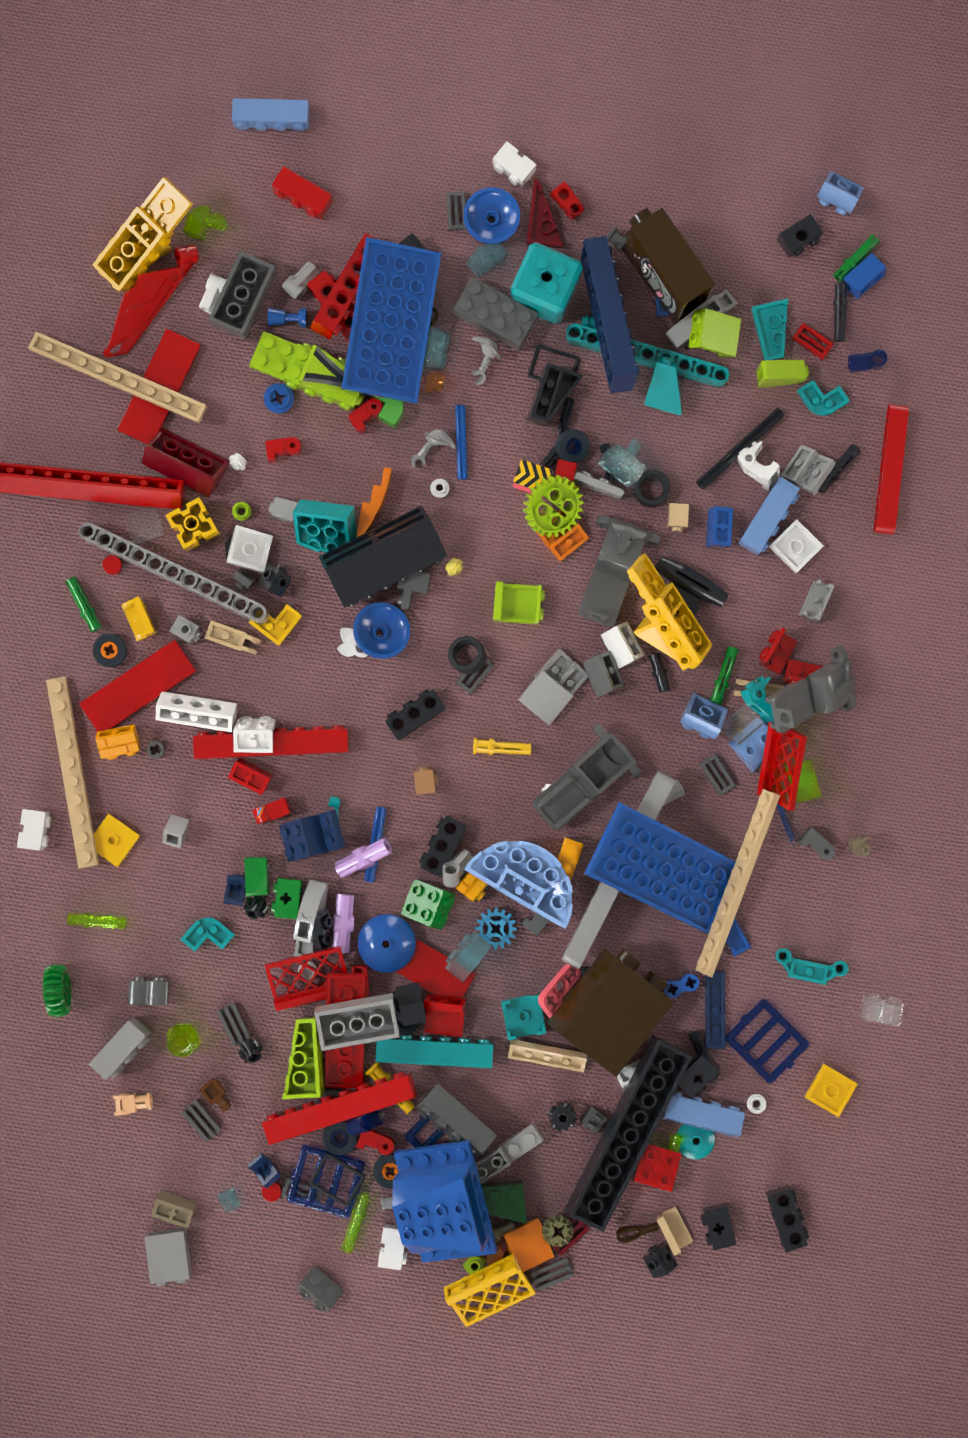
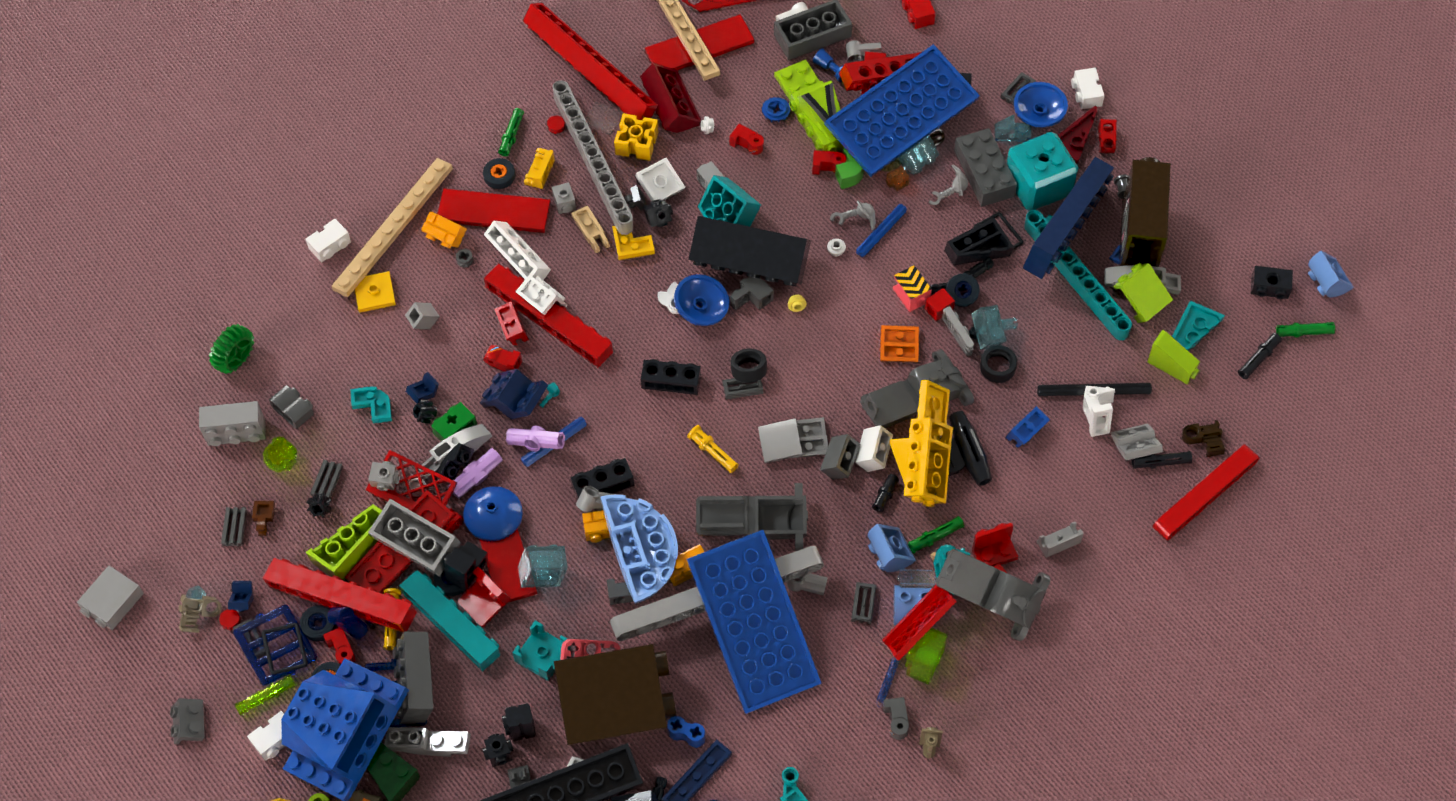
camera: 45 degrees right, 25 degrees down
(88, 920) = (301, 327): clear neon green pin -> none
(129, 1103) = (199, 470): light nougat connector -> none
(174, 1209) = (149, 568): dark tan hinge -> none
(240, 1214) = (192, 611): none -> dark tan piece
(241, 505) = (679, 153): lime plate -> none
(256, 876) = (447, 391): green piece -> none
(280, 998) = (384, 475): none -> light grey brick
(371, 510) = (784, 218): orange slope -> none
(425, 781) = (633, 426): medium nougat brick -> none
(428, 904) = (551, 514): bracket -> none
(505, 919) = (592, 574): dark azure gear -> none
(518, 603) = (820, 362): lime panel -> none
(547, 1055) = (530, 693): tan plate -> none
(561, 1086) = (519, 722): none -> black brick
(564, 492) = (926, 308): lime gear -> none
(665, 387) = (1071, 300): teal slope -> none
(677, 517) = (1001, 396): tan brick -> none
(736, 939) = (765, 732): blue tile -> none
(737, 883) = (796, 691): tan plate -> none
(769, 515) = (1074, 448): medium blue brick -> none
(795, 338) = (1218, 375): red tile -> none
(795, 546) = (1078, 488): white plate -> none
(819, 403) = (1190, 407): teal plate -> none
(856, 417) = (1211, 435): none -> dark brown piece
(865, 276) = (1302, 346): blue hinge -> none
(865, 361) = (1252, 403): clear blue piece -> none

